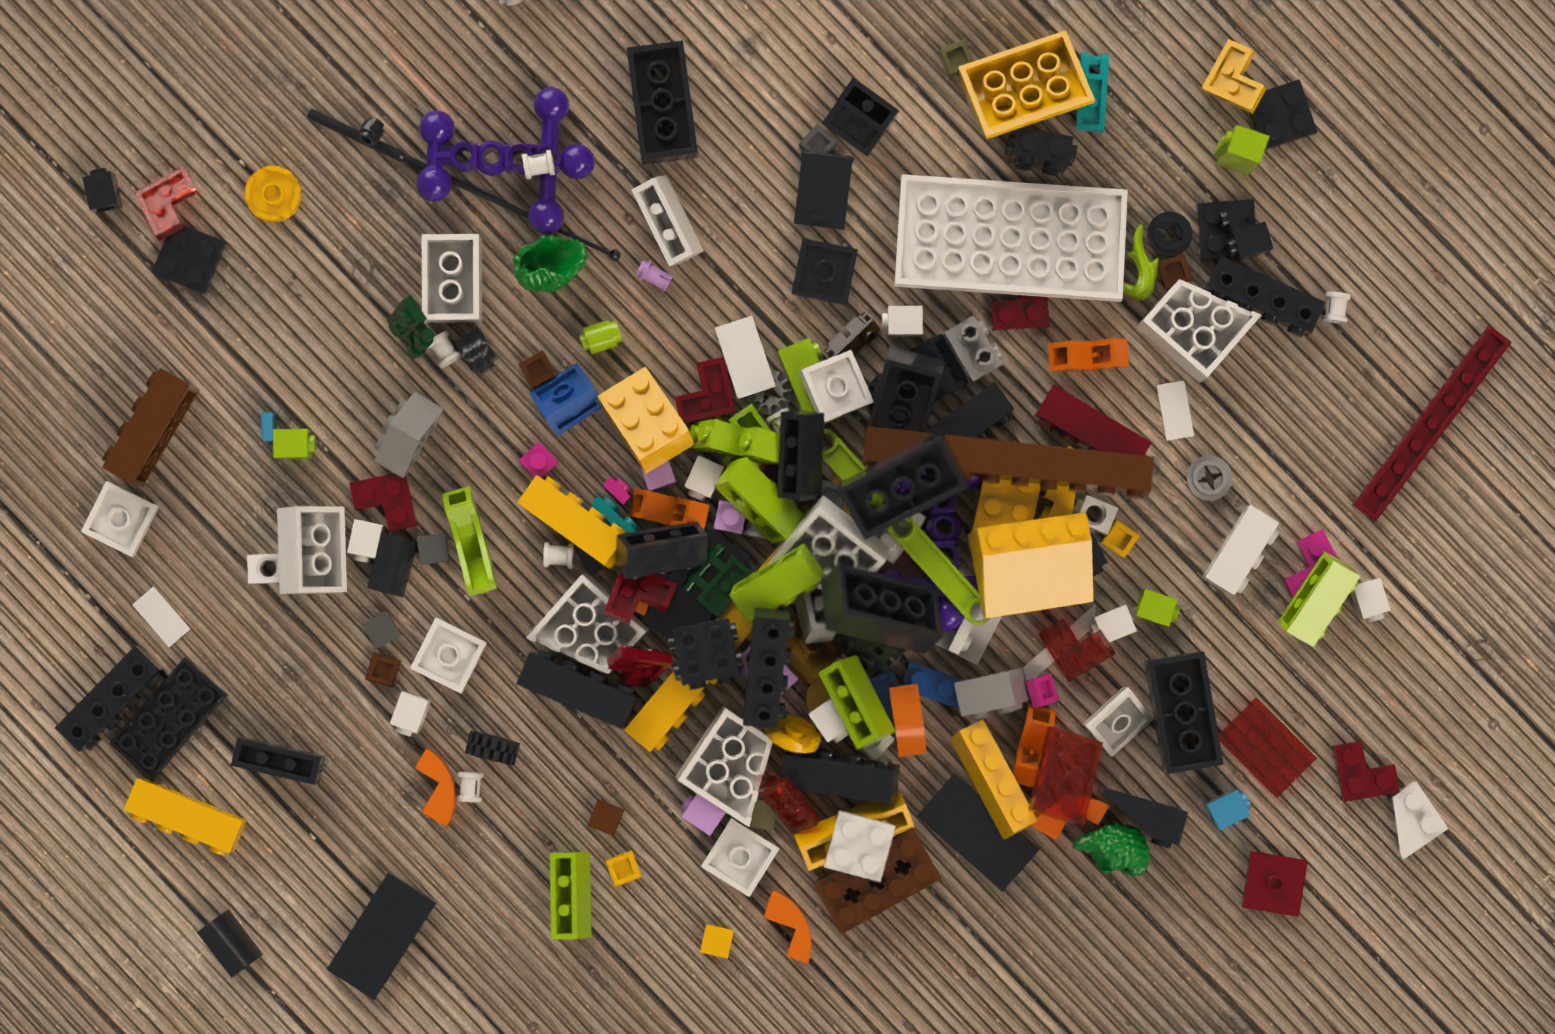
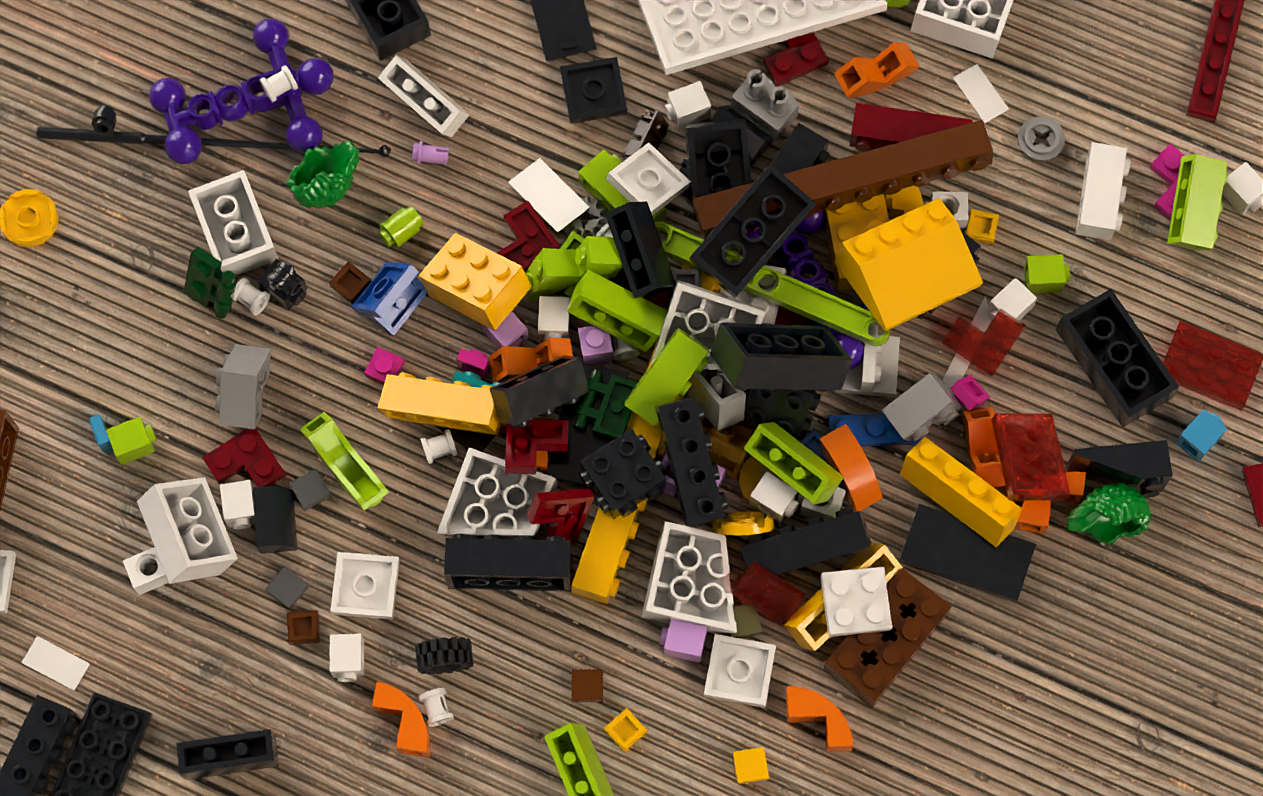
camera: 20 degrees left, 15 degrees down
(1118, 721) = (1058, 391): white slope -> none

